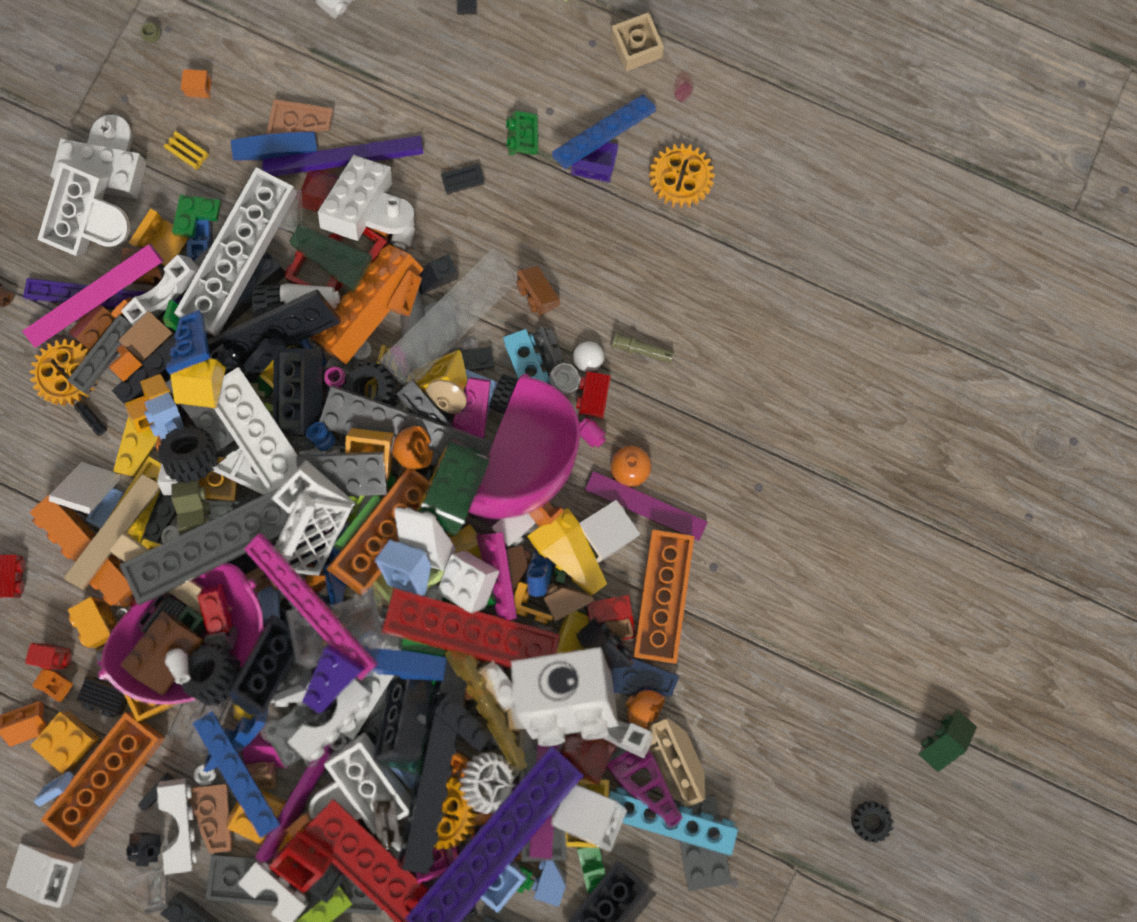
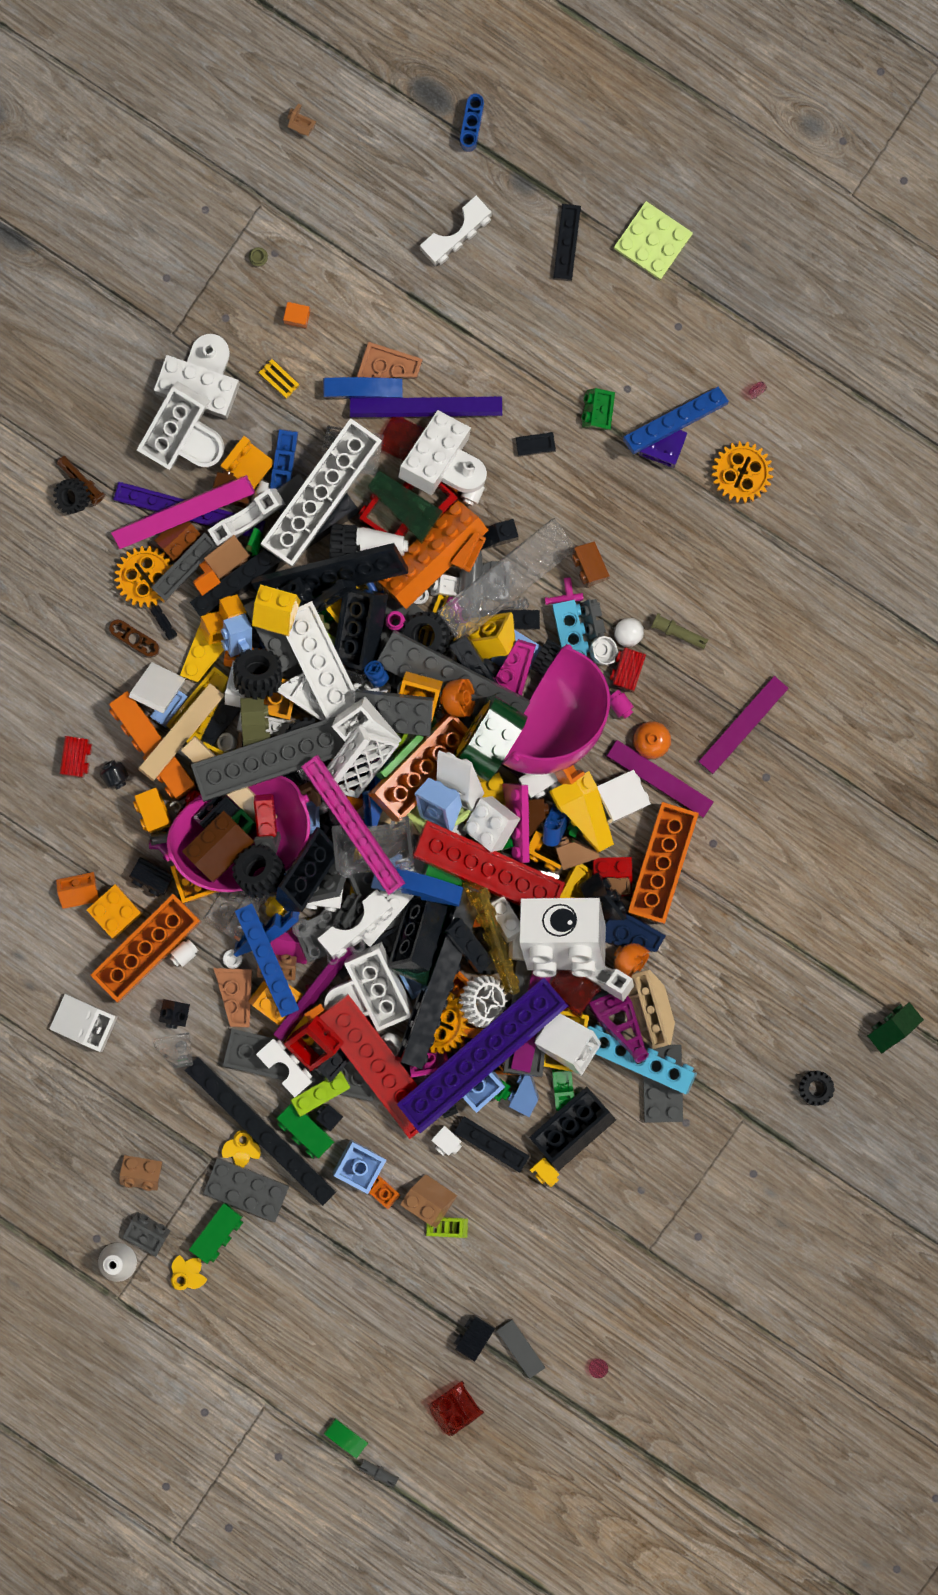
camera: 15 degrees right, 5 degrees up
(48, 656) = (109, 834): red brick -> none
(50, 589) = (114, 774): none -> black head
(53, 684) = (108, 859): orange bracket -> none
(53, 788) = (102, 950): light blue tile -> none
(68, 439) = (125, 626): none -> reddish brown beam
(117, 311) = (207, 524): orange tile -> none
(148, 776) = (183, 953): none -> white brick
(152, 796) = (190, 966): black tile -> none
(173, 798) = (204, 1022): white arch -> none
(178, 665) = (233, 858): white cone -> none
(190, 210) = (279, 441): green plate -> none
(190, 344) = (276, 575): blue wing -> none
(330, 678) = (362, 890): dark purple wing -> none
(385, 335) = (445, 586): none -> white bracket
(386, 822) = (390, 1021): dark brown hinge -> none
(447, 396) = (494, 654): tan dish -> none
(519, 326) = (569, 594): none -> dark pink piece
(637, 41) = (720, 335): tan brick -> none
(725, 436) = (743, 725): none -> magenta tile

